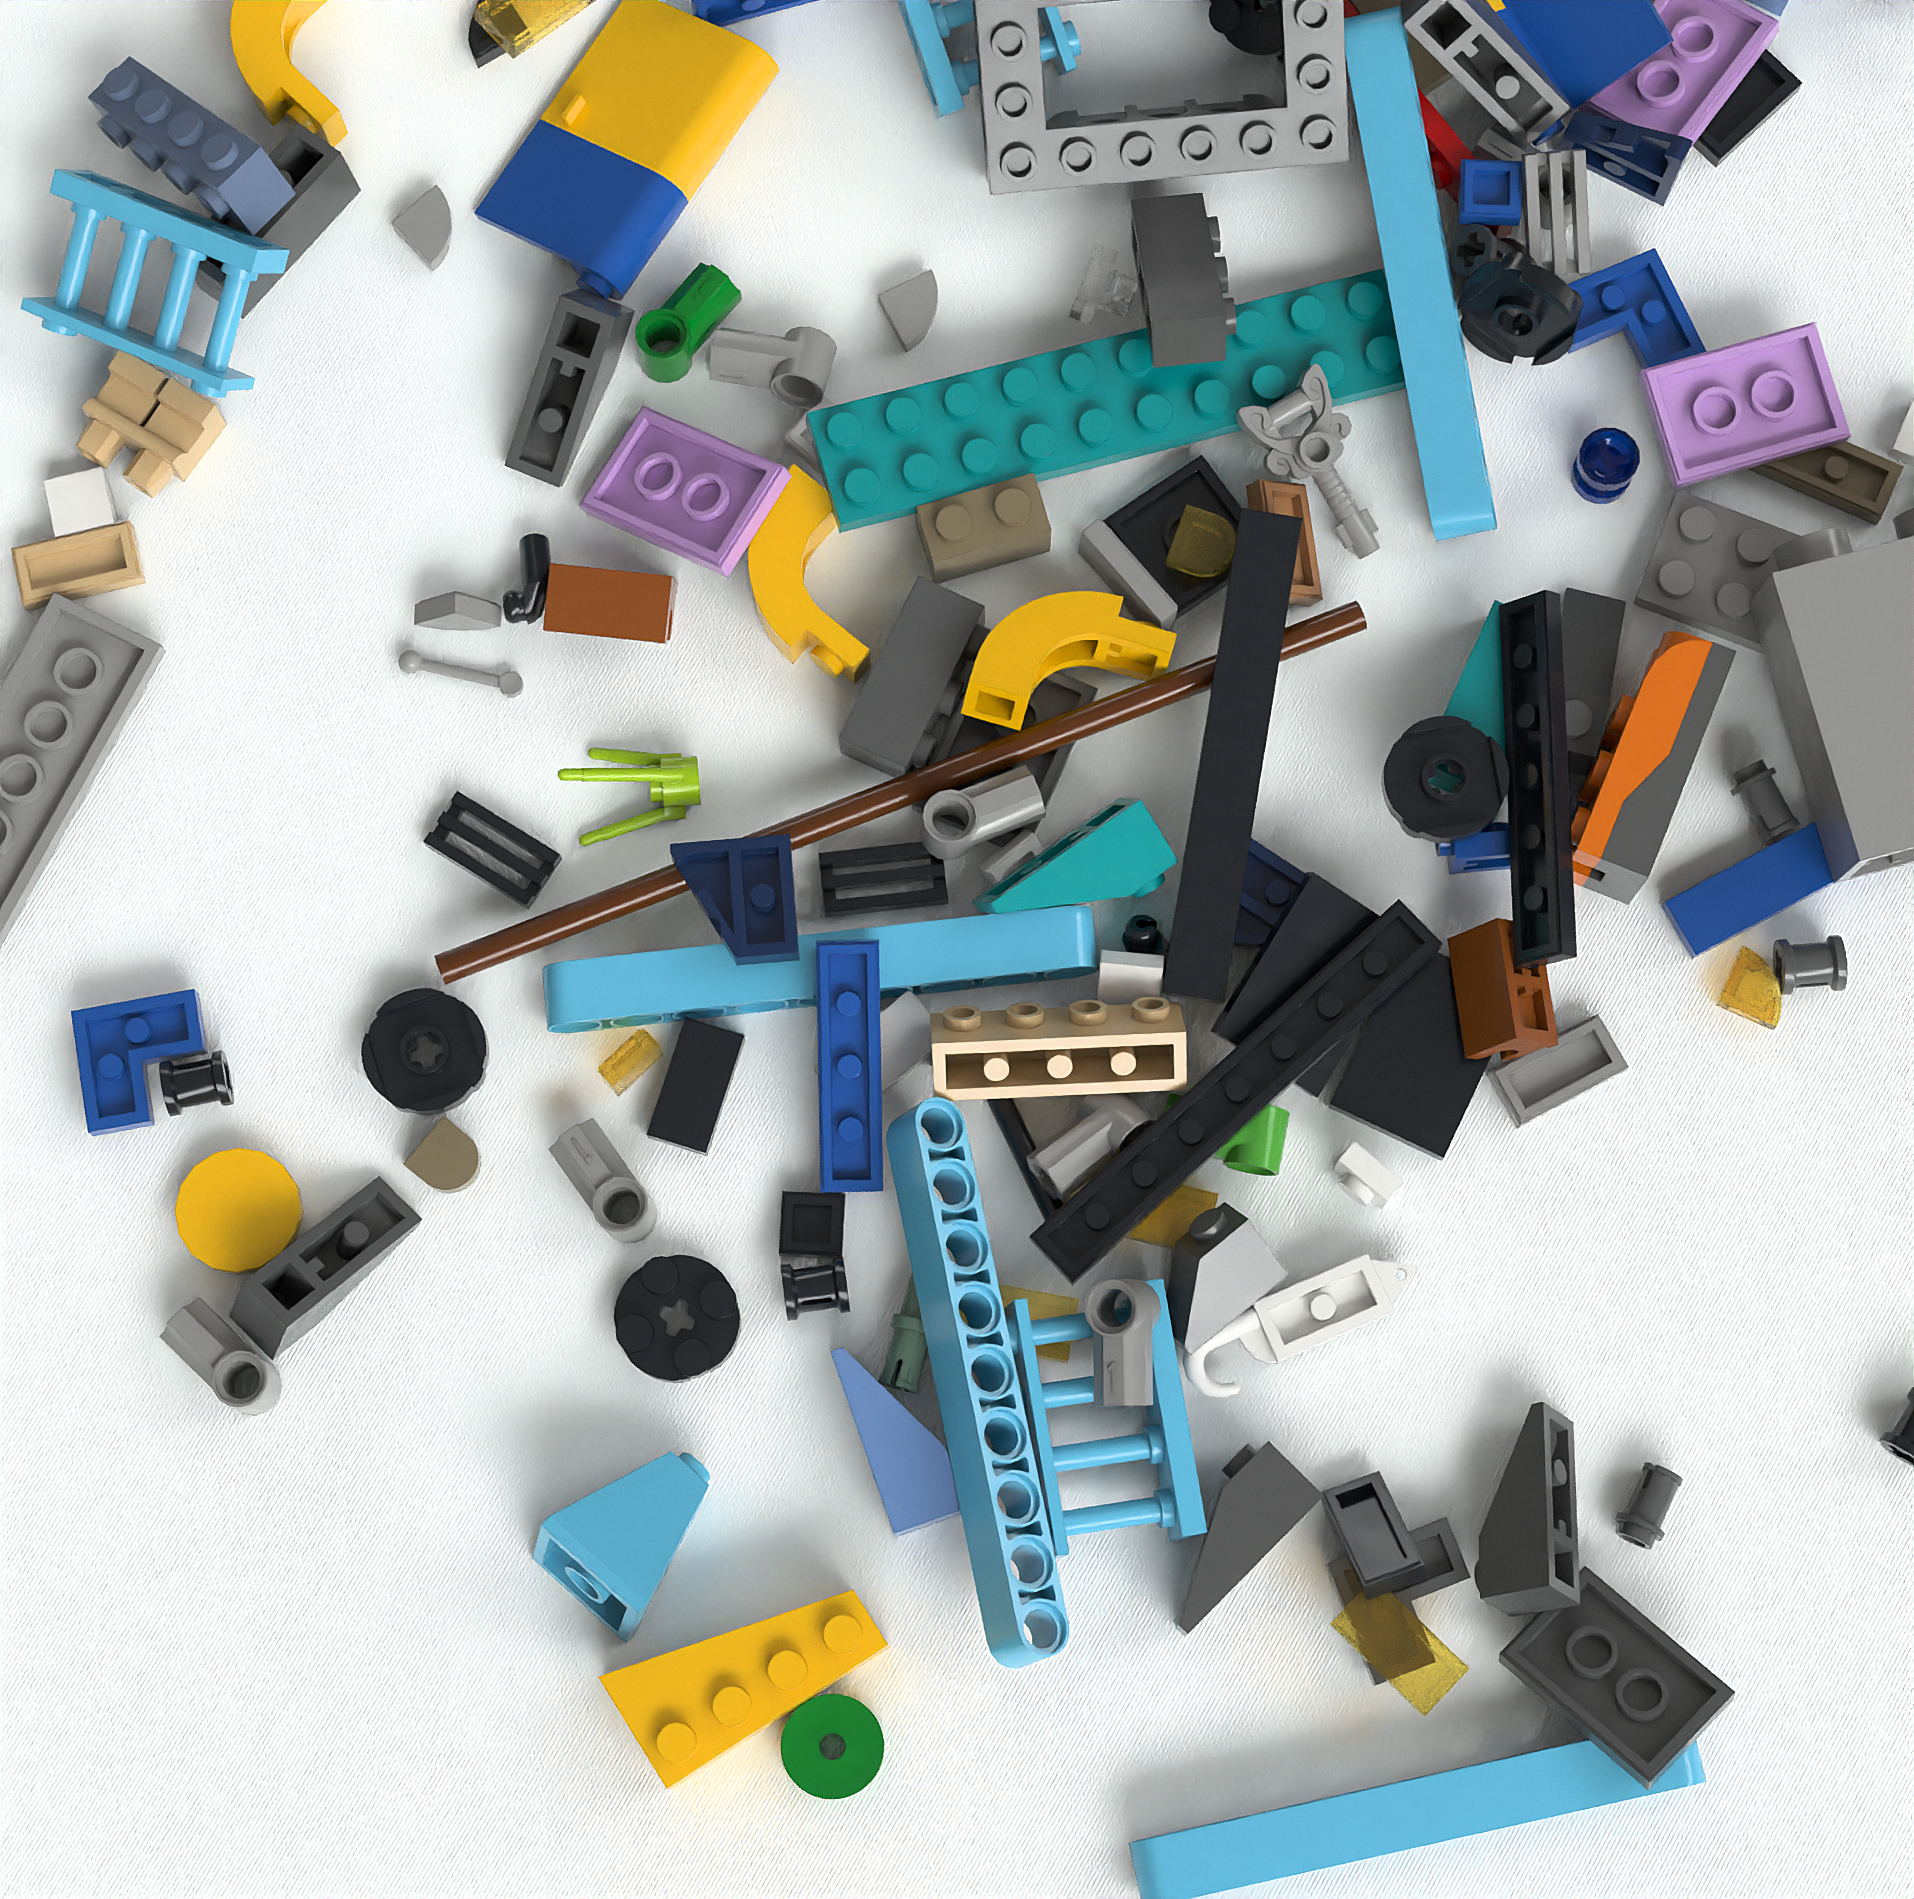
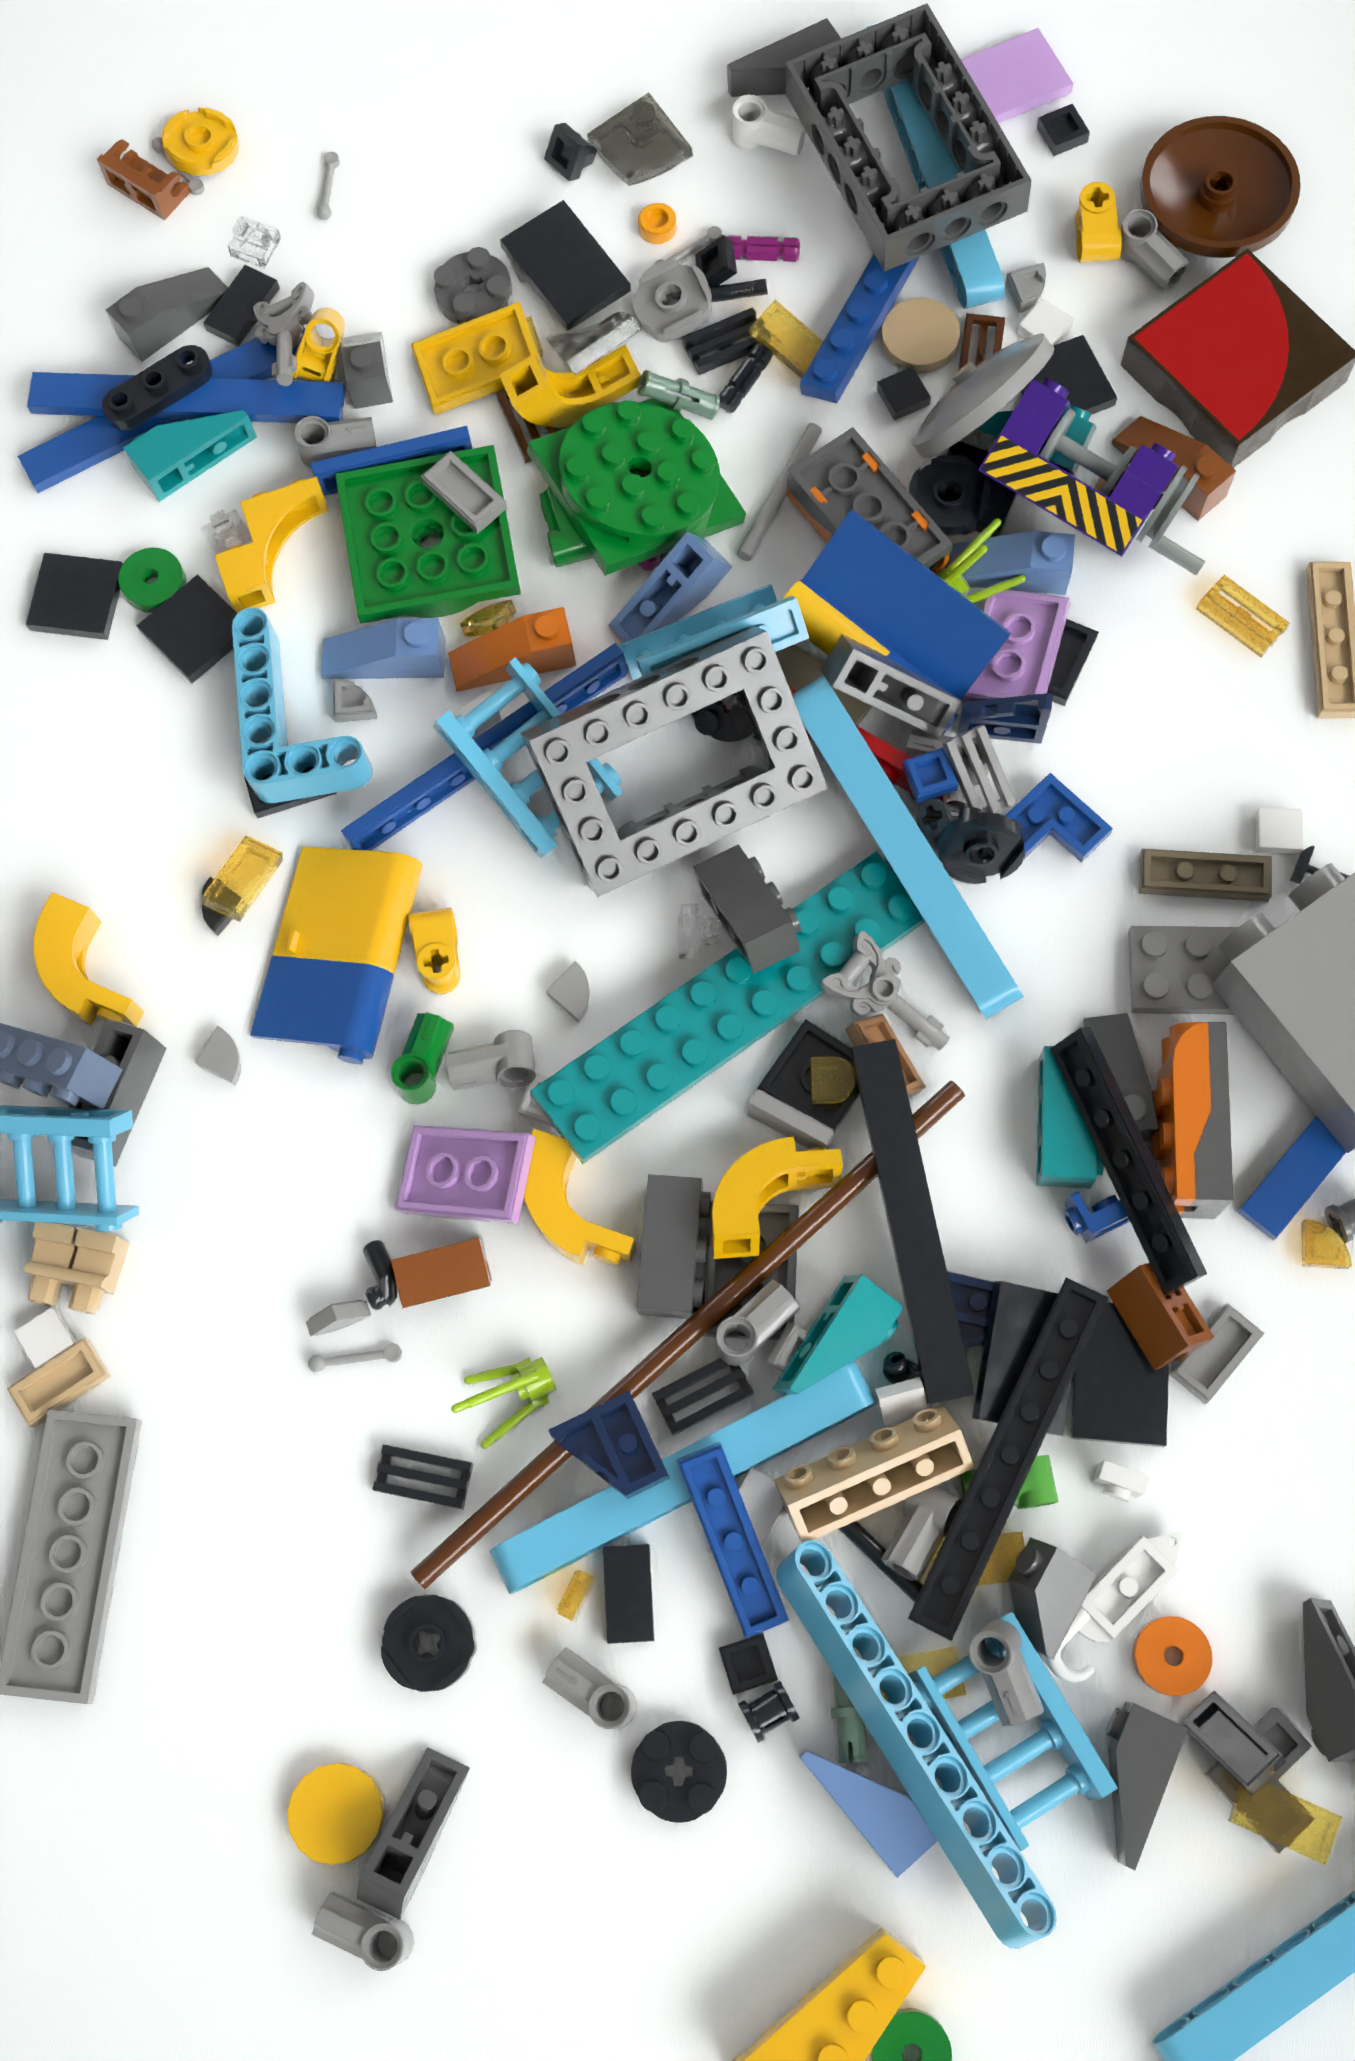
camera: 15 degrees left, 5 degrees down
(119, 1043) = (205, 1724): blue plate -> none
(196, 1083) = (272, 1730): black bush -> none
(445, 1158) = (470, 1716): dark tan tile -> none
(568, 384) = (357, 1129): dark grey slope -> none
(623, 1538) = (707, 1956): medium azure slope -> none
(756, 182) = (436, 944): none -> yellow piece
(983, 528) = (679, 1124): dark tan brick -> none
(1365, 1391) = (1194, 1653): none -> orange piece
(1465, 751) = (1056, 1207): black plate -> none
(1605, 452) = (1081, 919): clear blue wheel -> none
(1743, 405) = (1152, 854): lavender tile -> none
(1763, 800) = (1276, 1114): dark grey pin -> none

